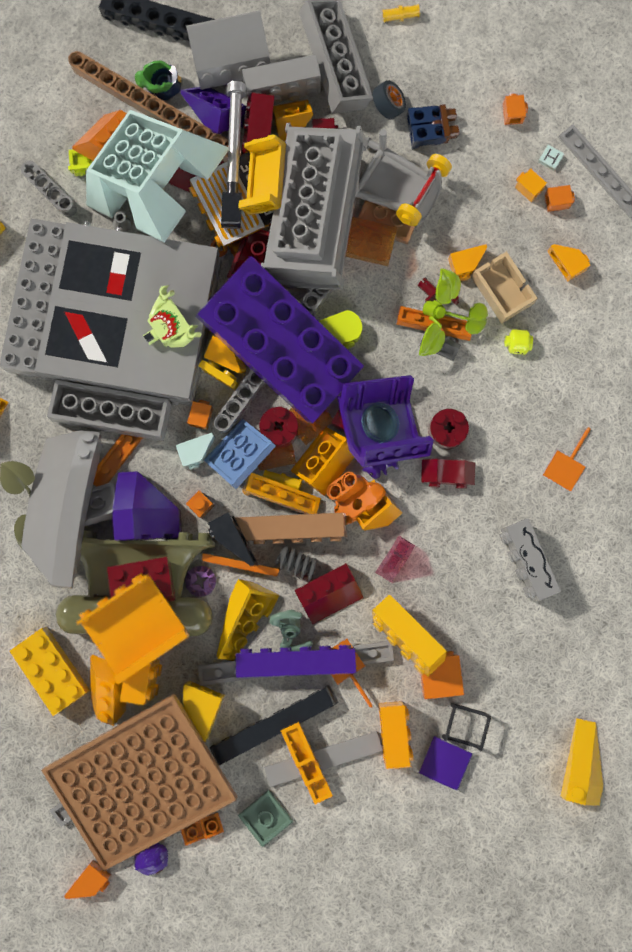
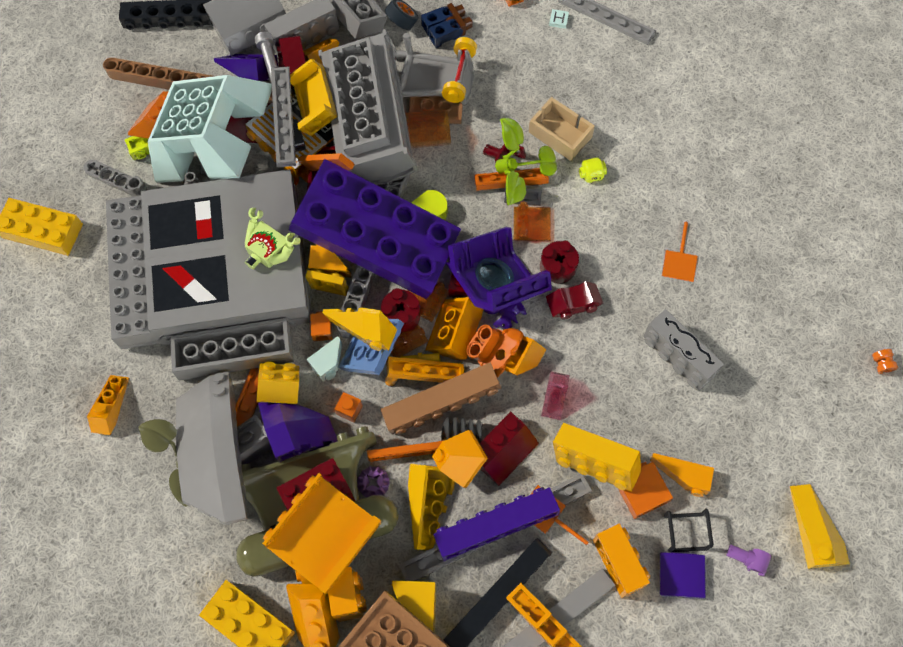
camera: 20 degrees left, 15 degrees down
(141, 461) = (278, 383): none -> yellow brick
(159, 79) = (191, 58): piece -> none
(227, 188) = (283, 117): none -> light grey tile
(229, 534) = (389, 423): black slope -> none
(239, 442) = (366, 325): none -> yellow wedge
(249, 251) = (314, 162): none -> orange tile
(284, 590) = (460, 457): none -> light orange slope
(289, 624) = (475, 489): sand green piece -> none
(437, 377) = (532, 223): none -> clear orange hinge
(465, 261) = (522, 115): light orange slope -> none
(488, 678) = (688, 475): none -> light orange slope
(514, 772) = (754, 559): none -> medium lavender pin
(530, 184) = (550, 43): light orange brick -> none
(559, 198) = (579, 46): orange brick -> none
(569, 260) = (609, 91): light orange slope -> none

